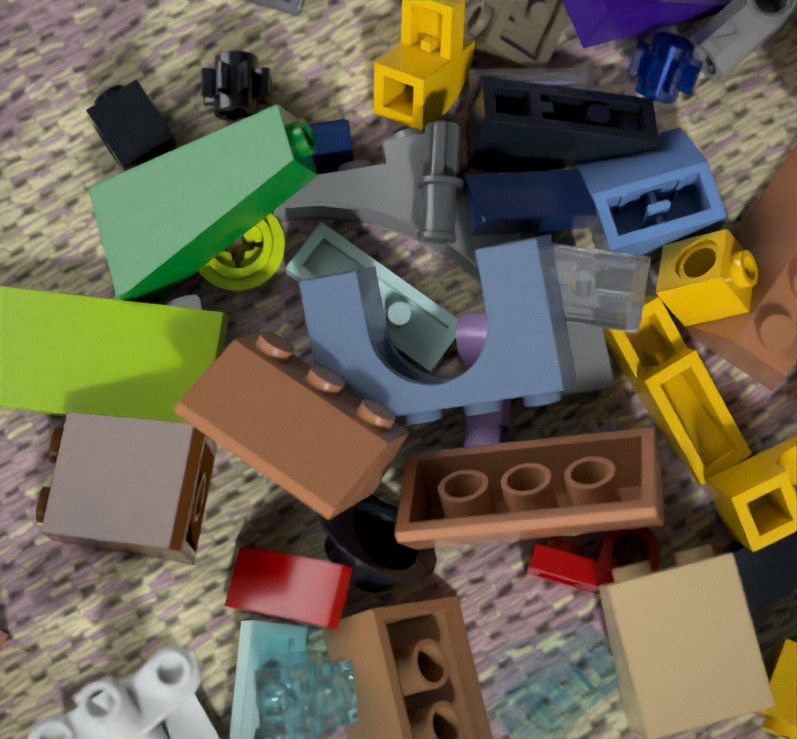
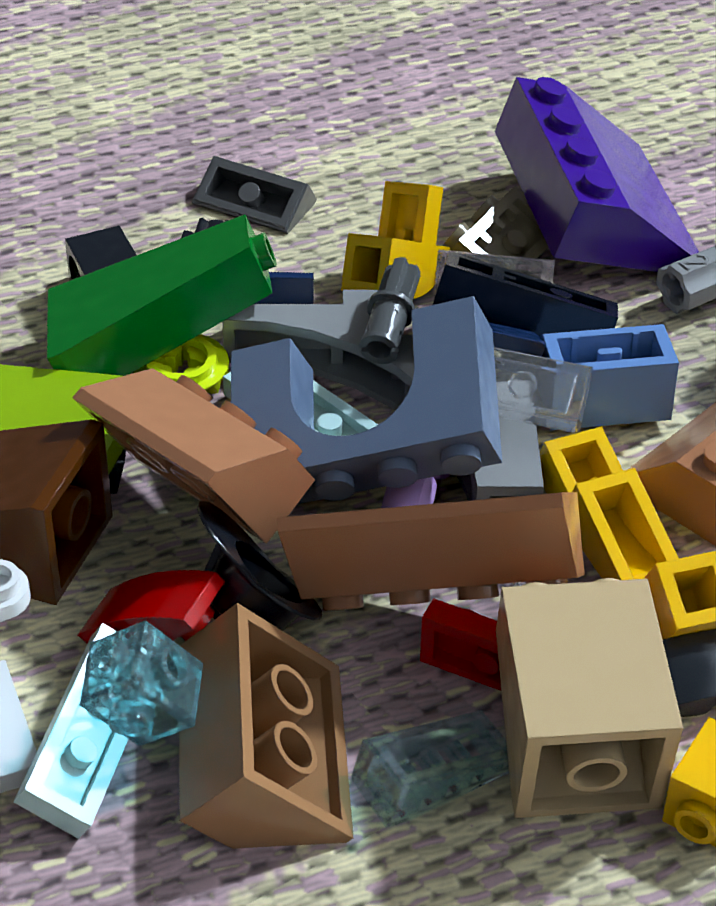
camera: 10 degrees right, 35 degrees down
(665, 67) = (634, 285): clear blue gear -> none
(706, 278) = (655, 420): yellow brick -> none

